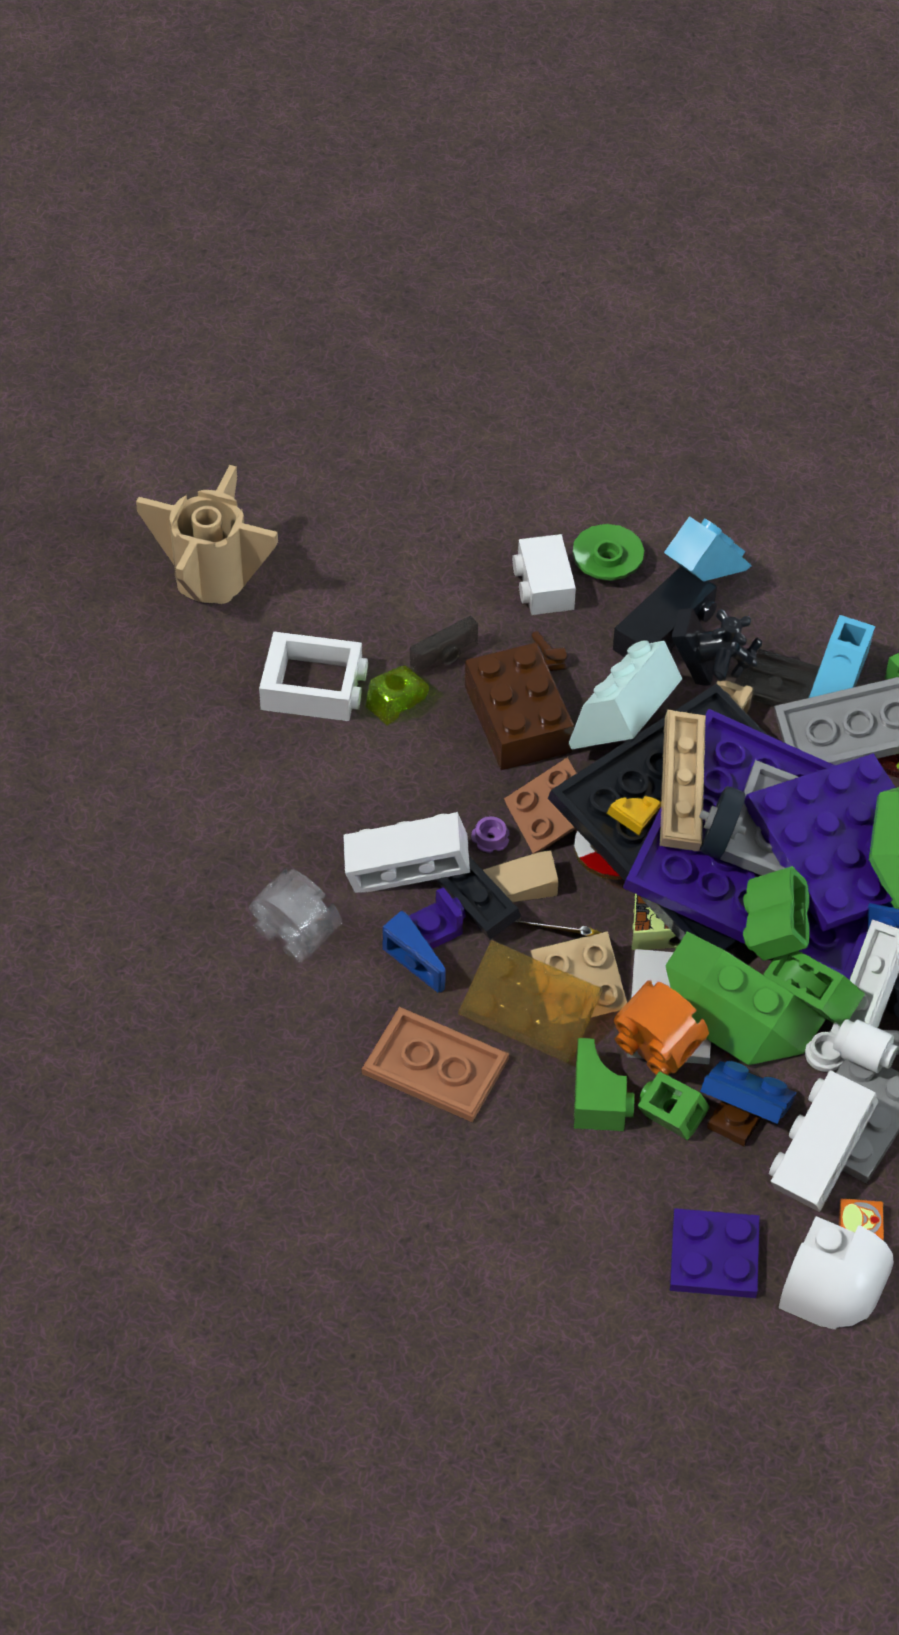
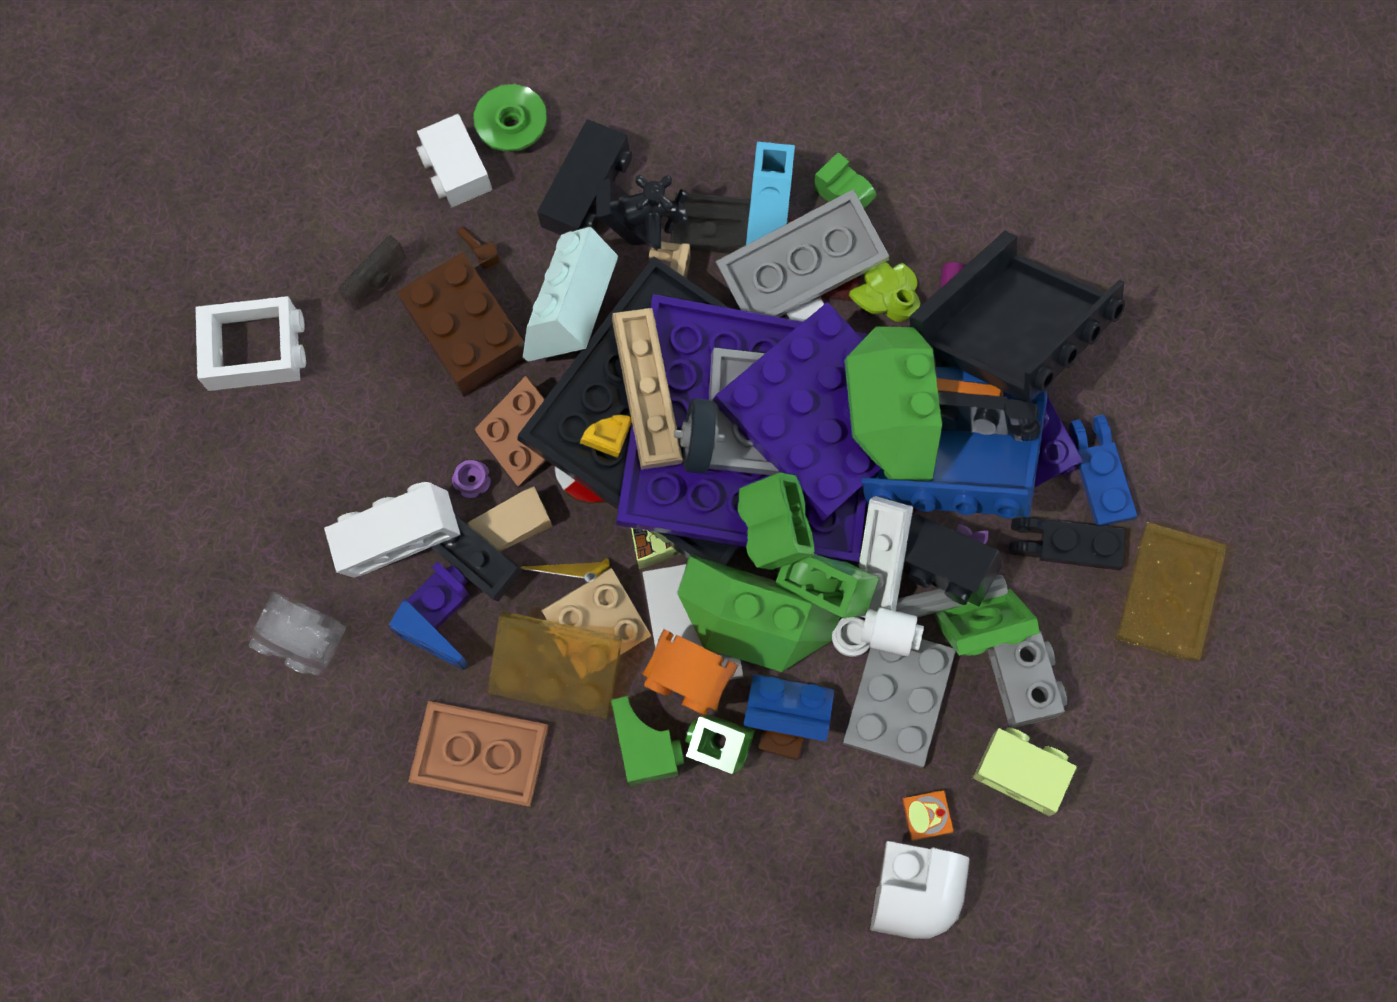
camera: 10 degrees left, 20 degrees up
(209, 541) = (99, 222): tan brick -> none
(395, 692) = (337, 339): clear neon green leg -> none
(706, 551) = (607, 101): medium azure slope -> none
(715, 1253) = (796, 890): dark purple plate -> none
(823, 1140) = (874, 750): white brick -> none

